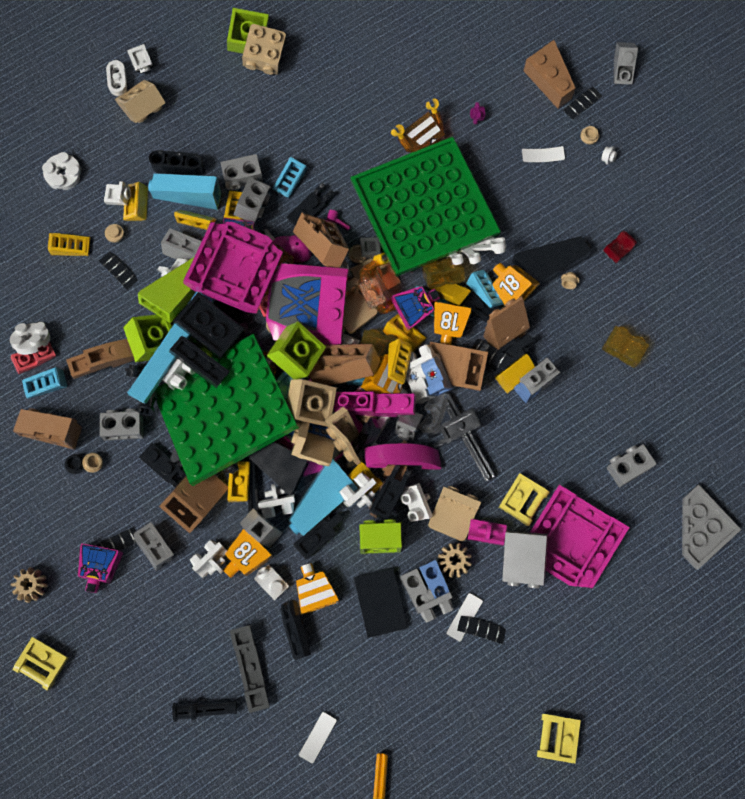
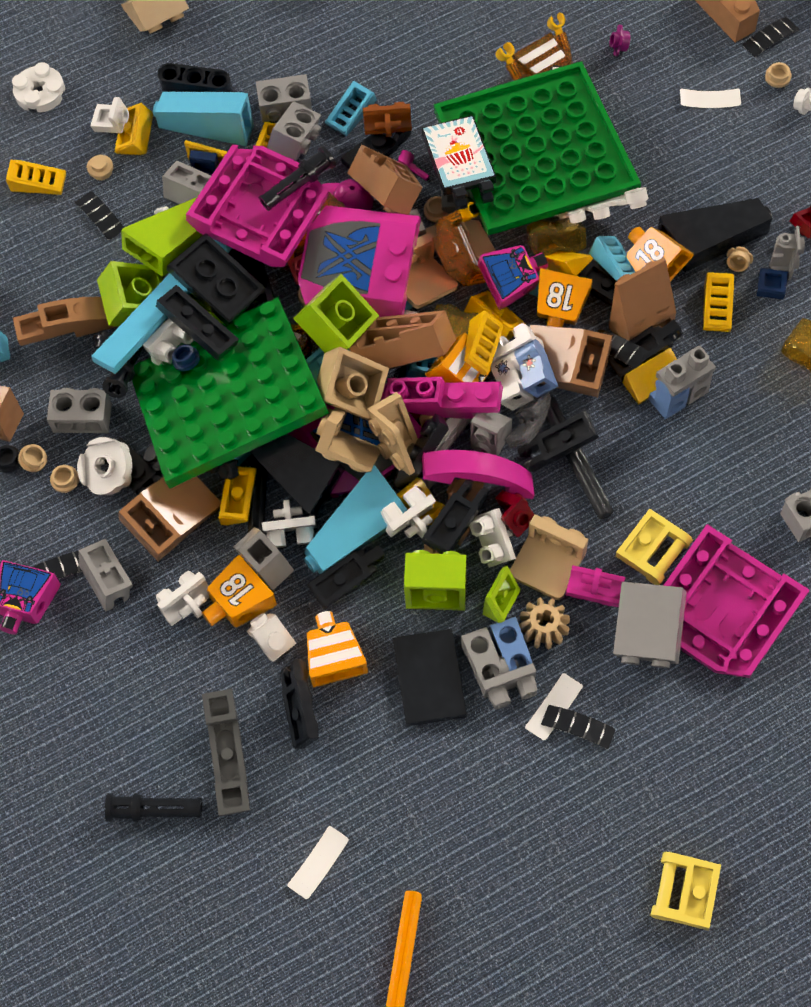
camera: 10 degrees right, 10 degrees down
(116, 476) = (64, 478): none -> tan plate
(154, 464) = (119, 469): none -> white plate
(189, 227) = (204, 161): none -> dark blue tile
(193, 386) = (185, 357): none -> dark blue plate
(266, 241) = (310, 173): none -> black pin
(317, 188) = (387, 118): none -> dark orange hips
(372, 221) = (460, 159): none -> tile
(425, 544) = (501, 596): none -> lime slope
(433, 484) = (517, 512): none -> dark red bracket
(557, 298) = (722, 285): none -> yellow slope
(592, 297) = (772, 283): none -> dark blue tile
(603, 277) = (787, 252): none -> light grey hinge

